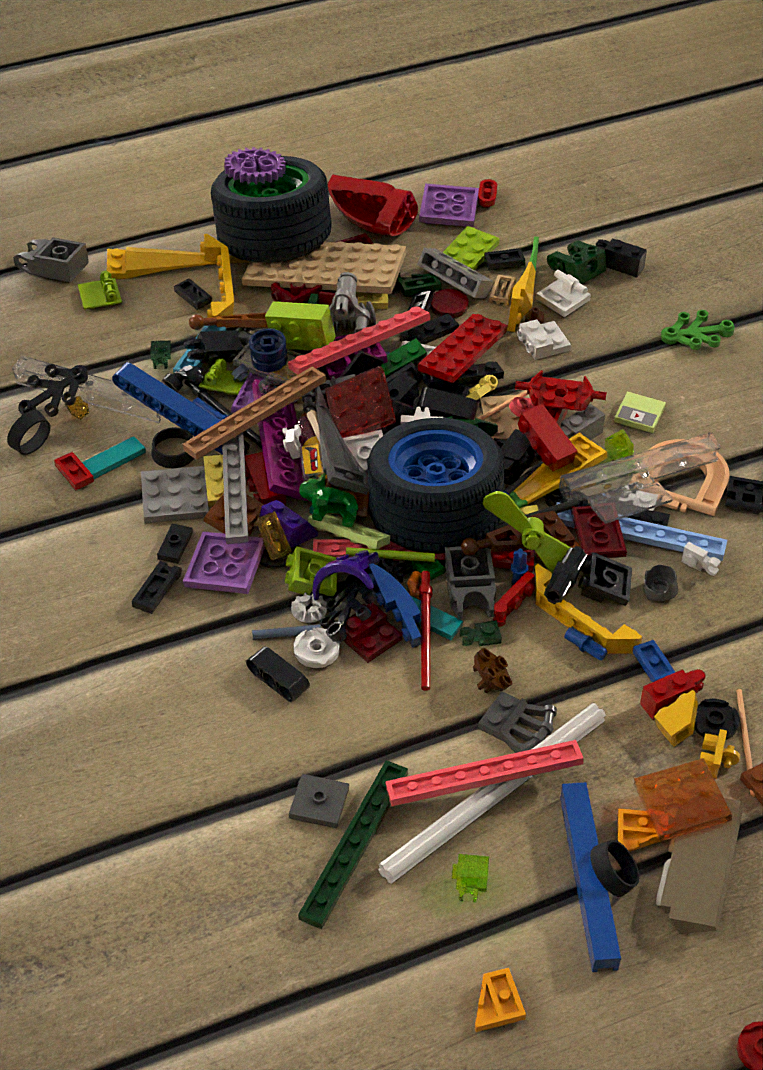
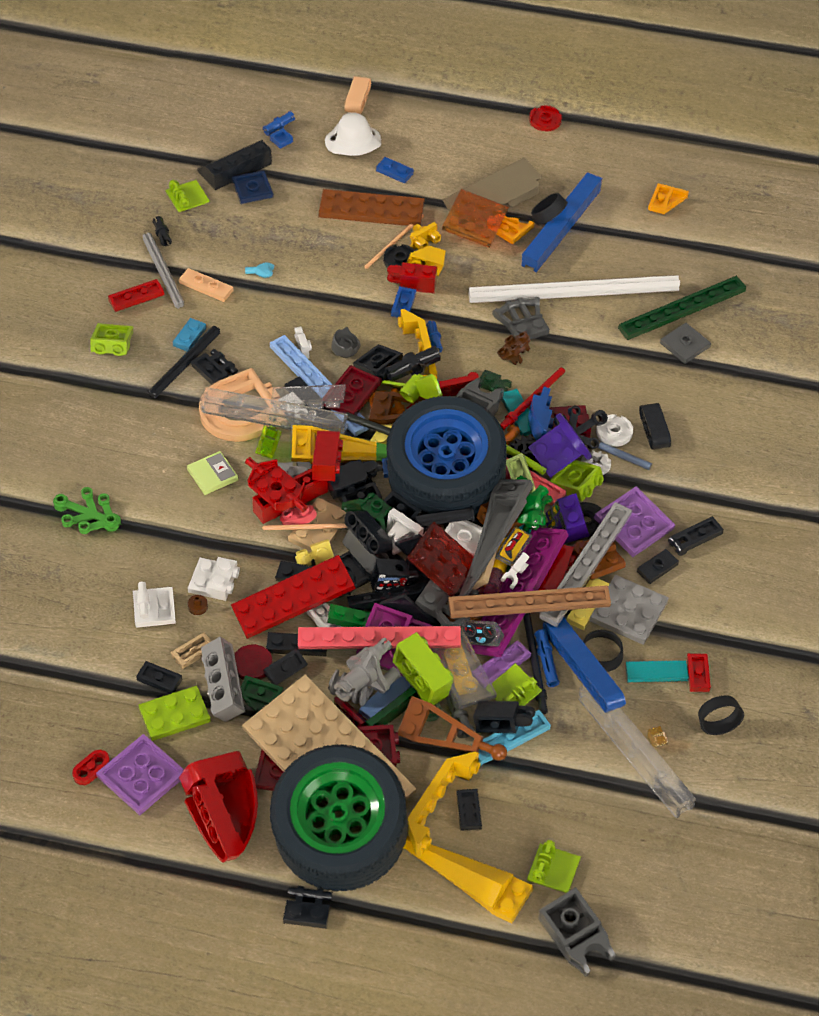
camera: 145 degrees left, 5 degrees up
(55, 389) = (649, 744): black plant -> none
(160, 353) = (544, 762): clear green plate -> none
(189, 372) = (542, 700): black arm -> none
(240, 372) = (499, 684): sand blue plate -> none
(254, 165) = (358, 829): medium lavender gear -> none
(268, 350) = (468, 664): dark blue wheel -> none
(273, 535) = (590, 506): clear yellow plate -> none
(471, 875) = (629, 255): clear neon green brick -> none
(484, 772) = (579, 286): coral plate -> none
(523, 291) = (199, 614): yellow plate -> none
(583, 263) = (104, 620): dark green brick -> none
(623, 256) = (62, 611): black hinge -> none

